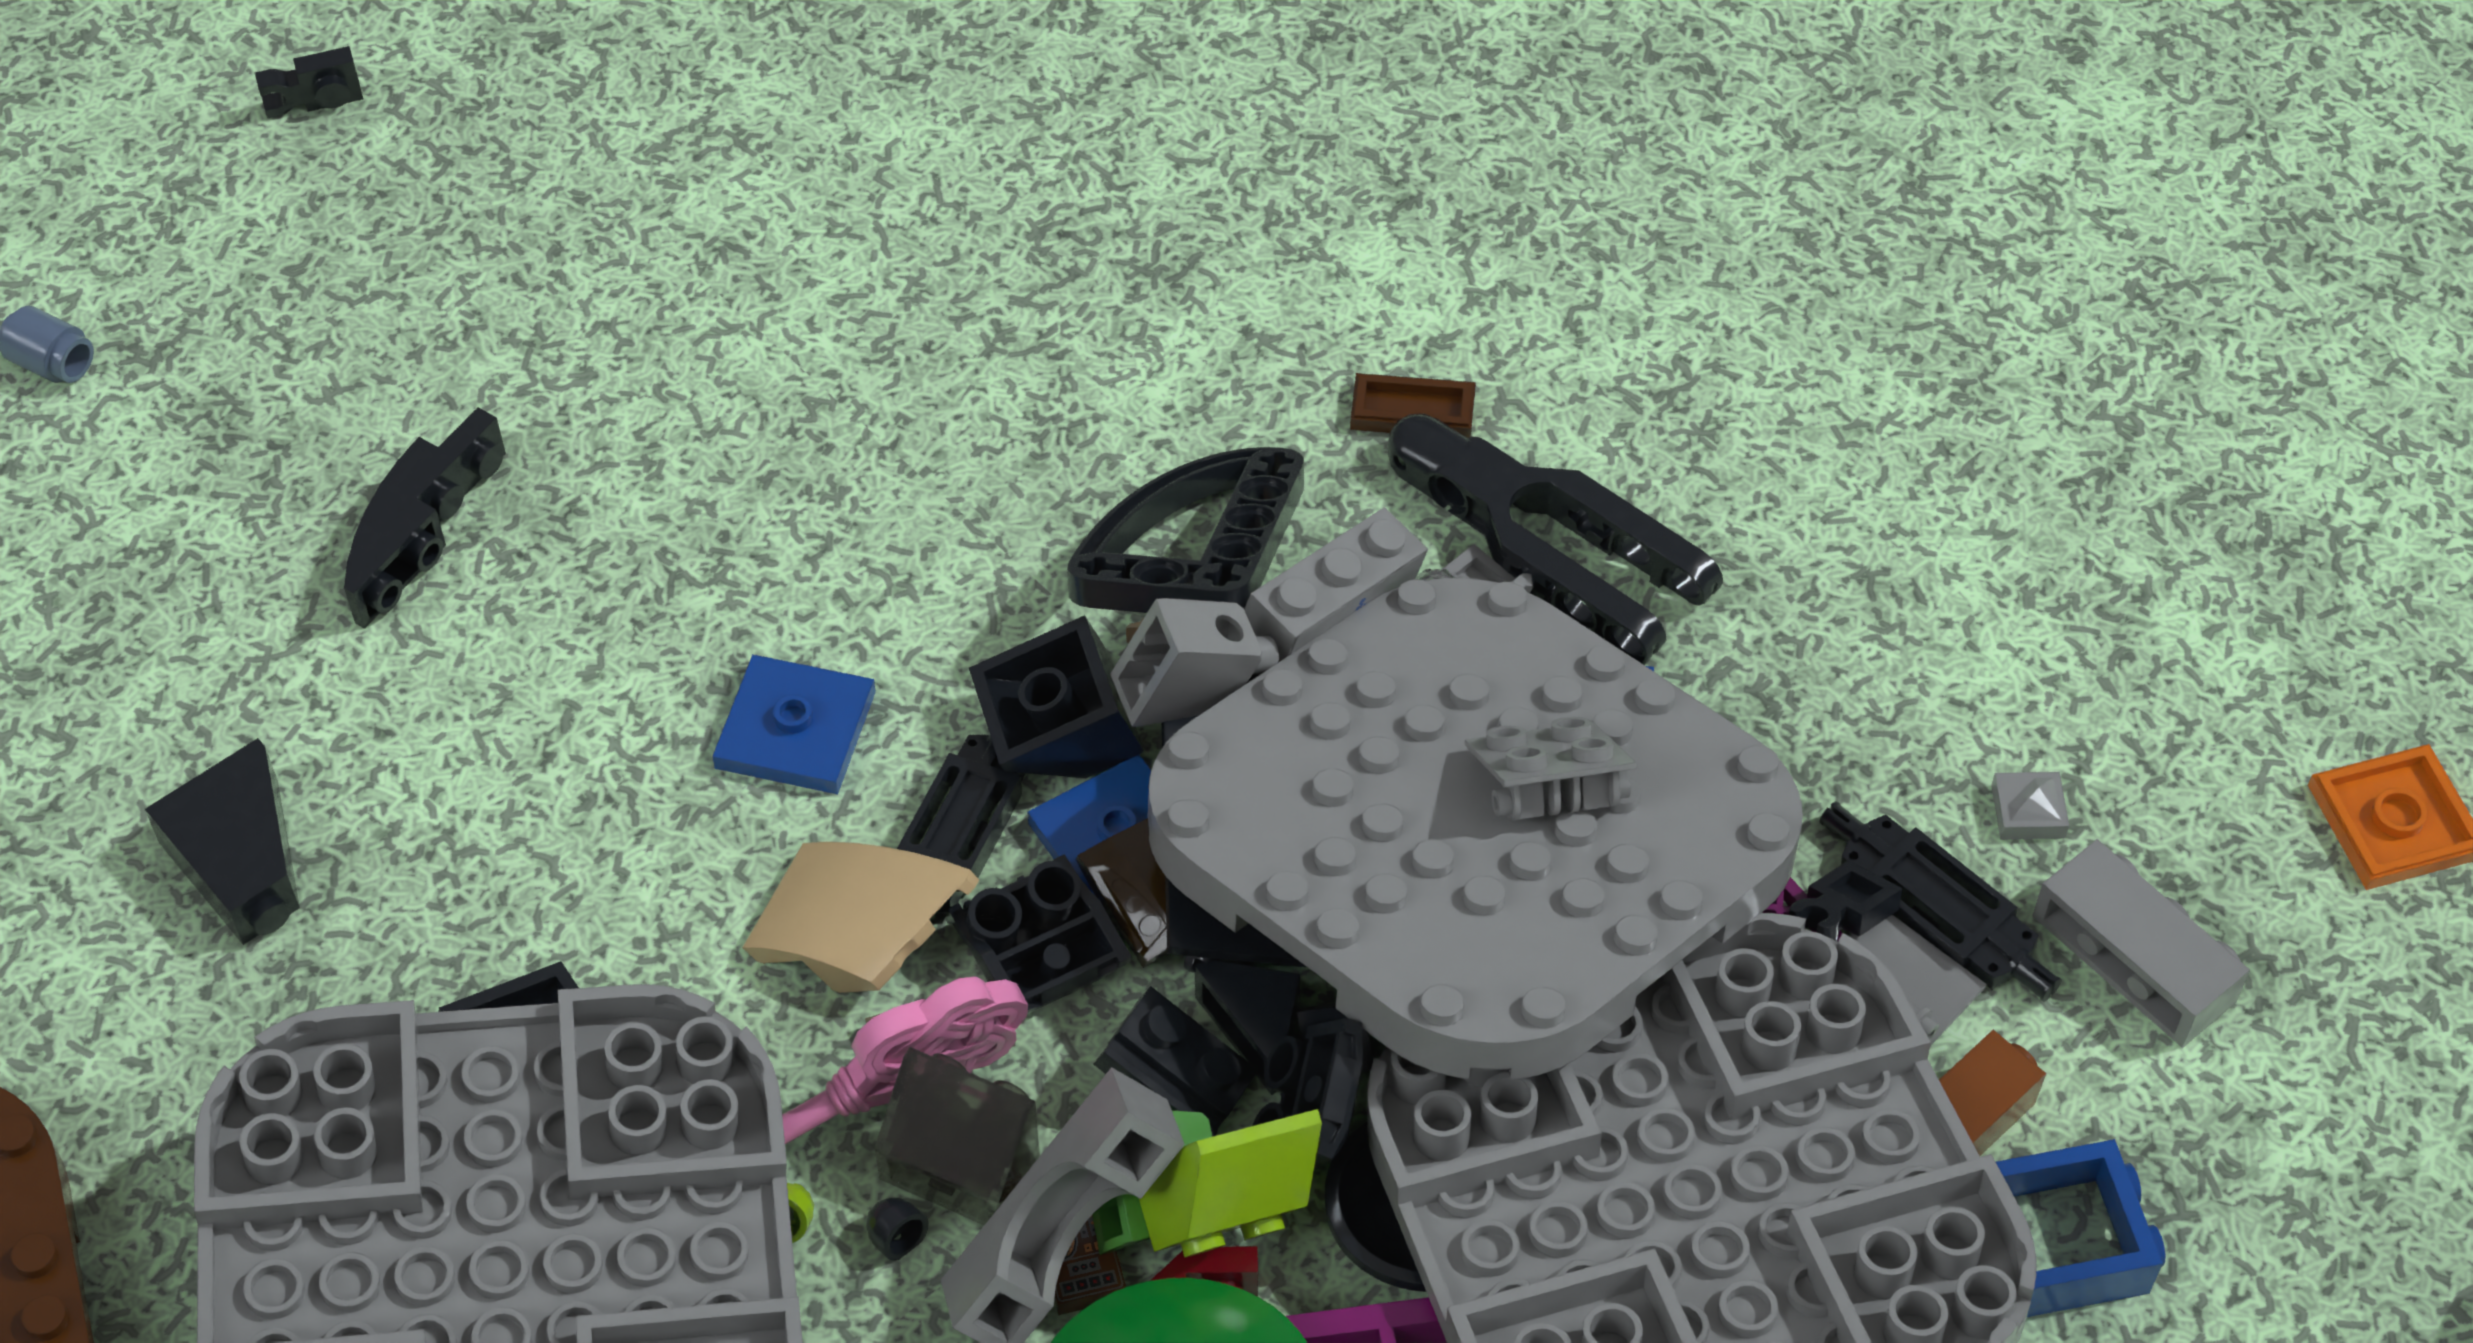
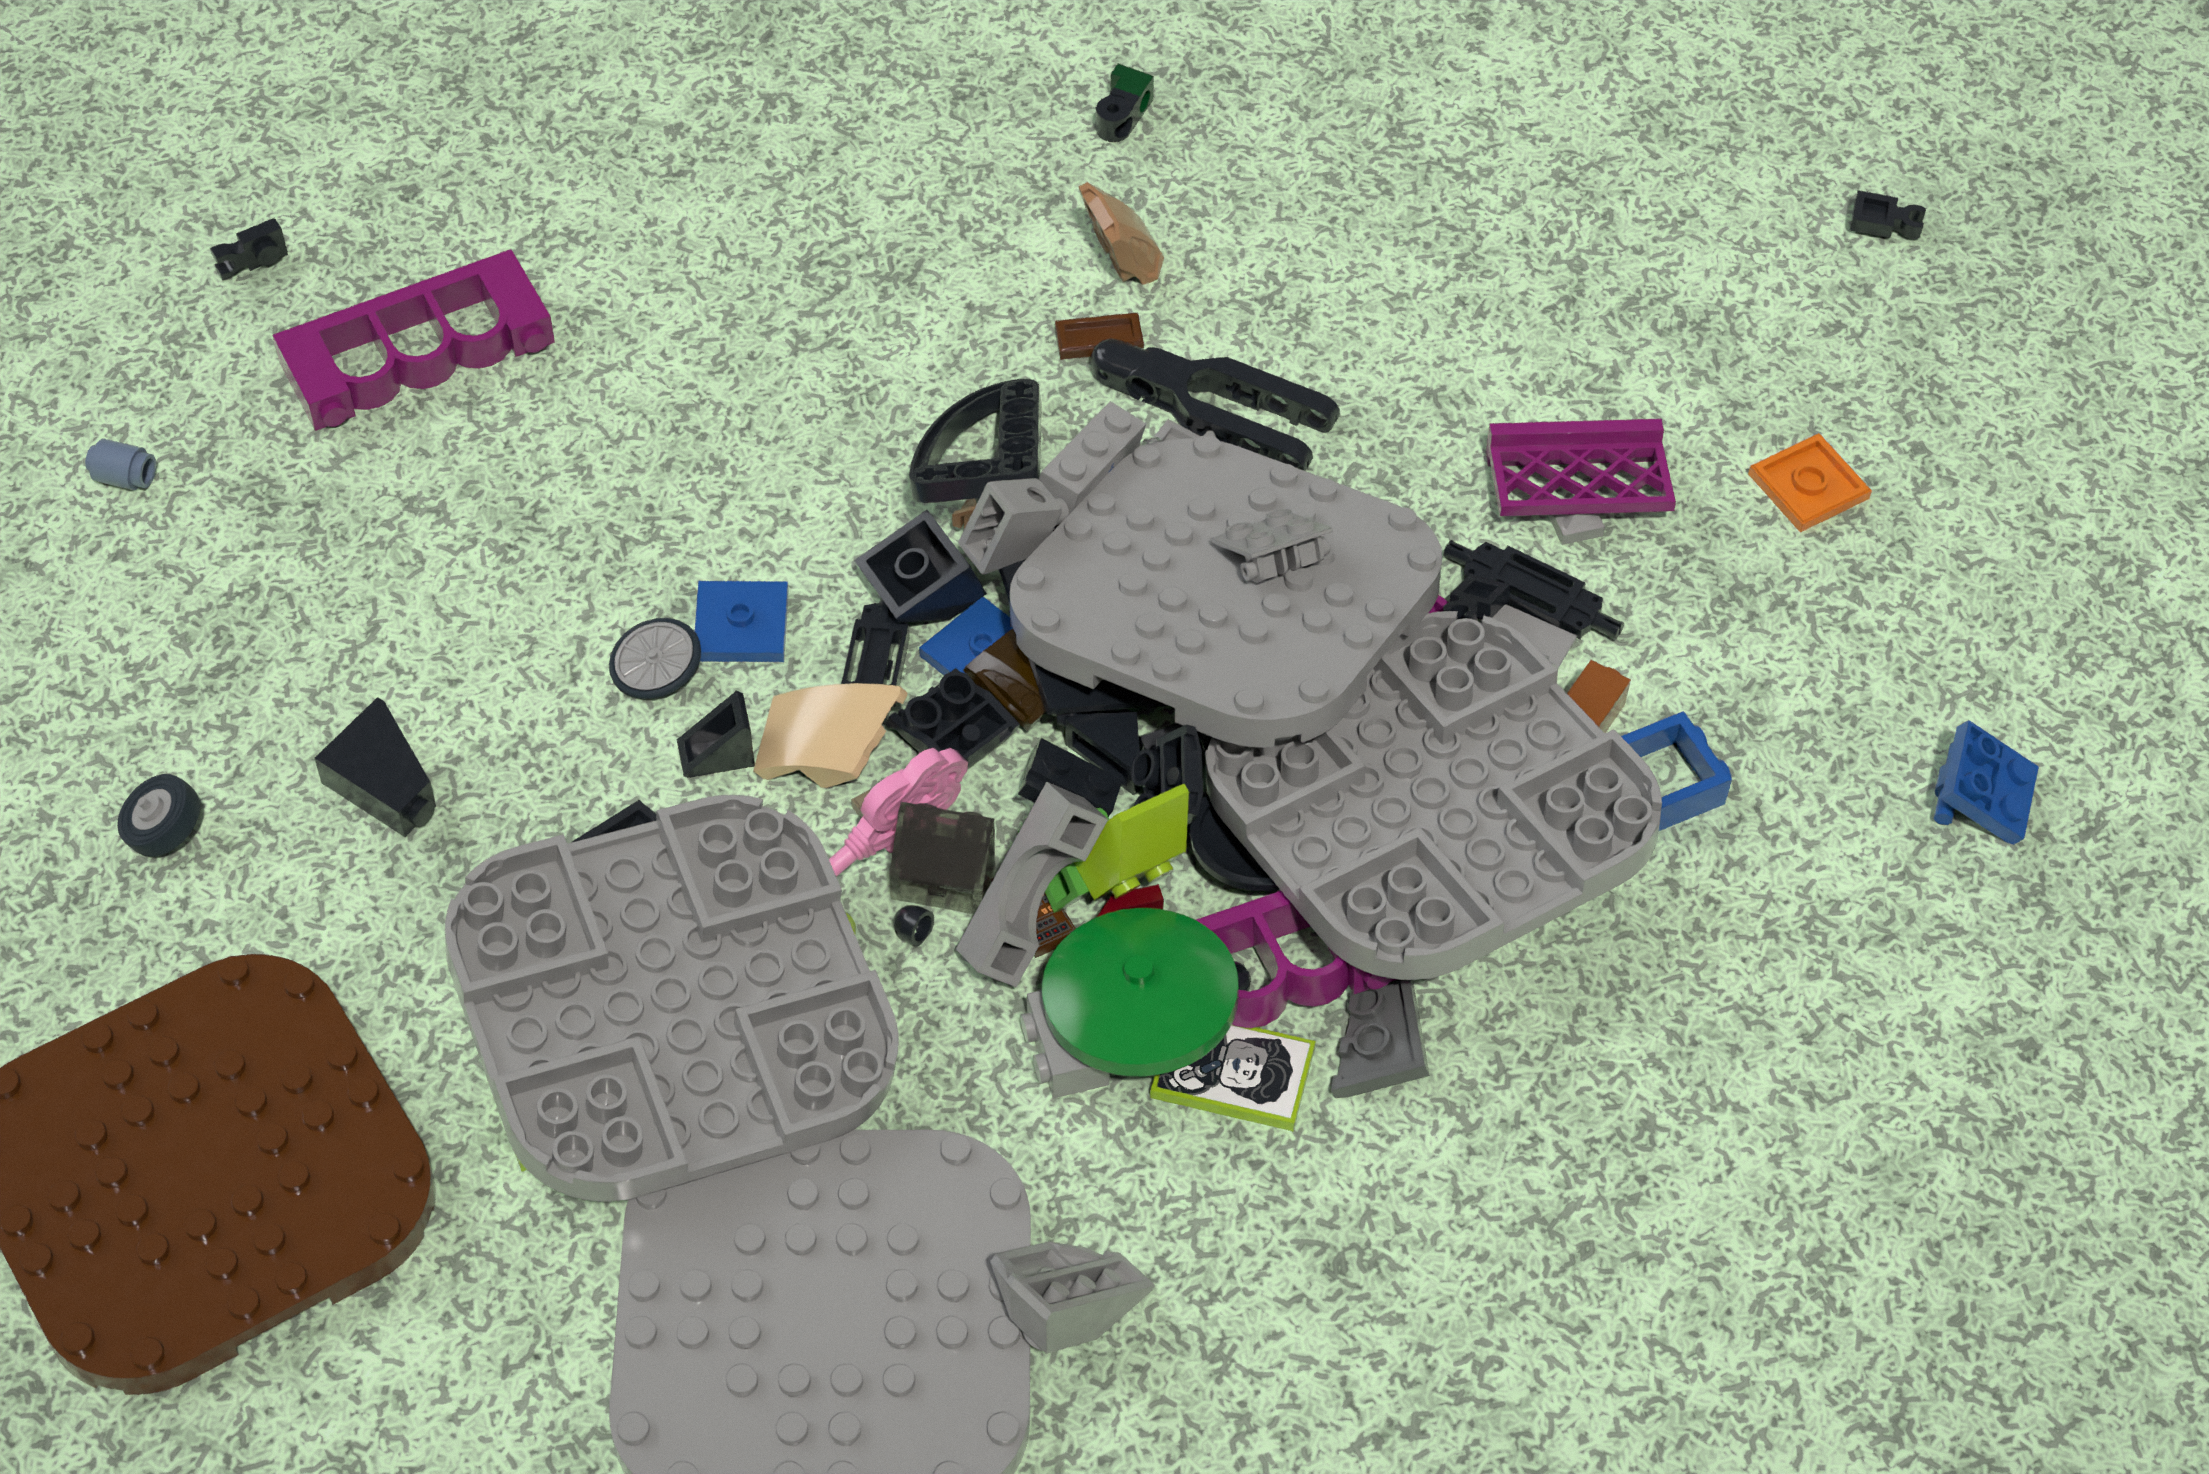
camera: 15 degrees left, 0 degrees up
(348, 301) = (332, 395): none -> magenta fence
(402, 521) = (427, 529): black slope -> none
(659, 754) = (655, 658): none -> light grey wheel
(707, 894) = (718, 740): none -> black slope
(1483, 270) = (1122, 236): none -> medium nougat slope
(1540, 85) = (1123, 108): none -> black leg
(2055, 695) = (1579, 446): none -> magenta fence
(2140, 942) = (1668, 590): light grey brick -> none

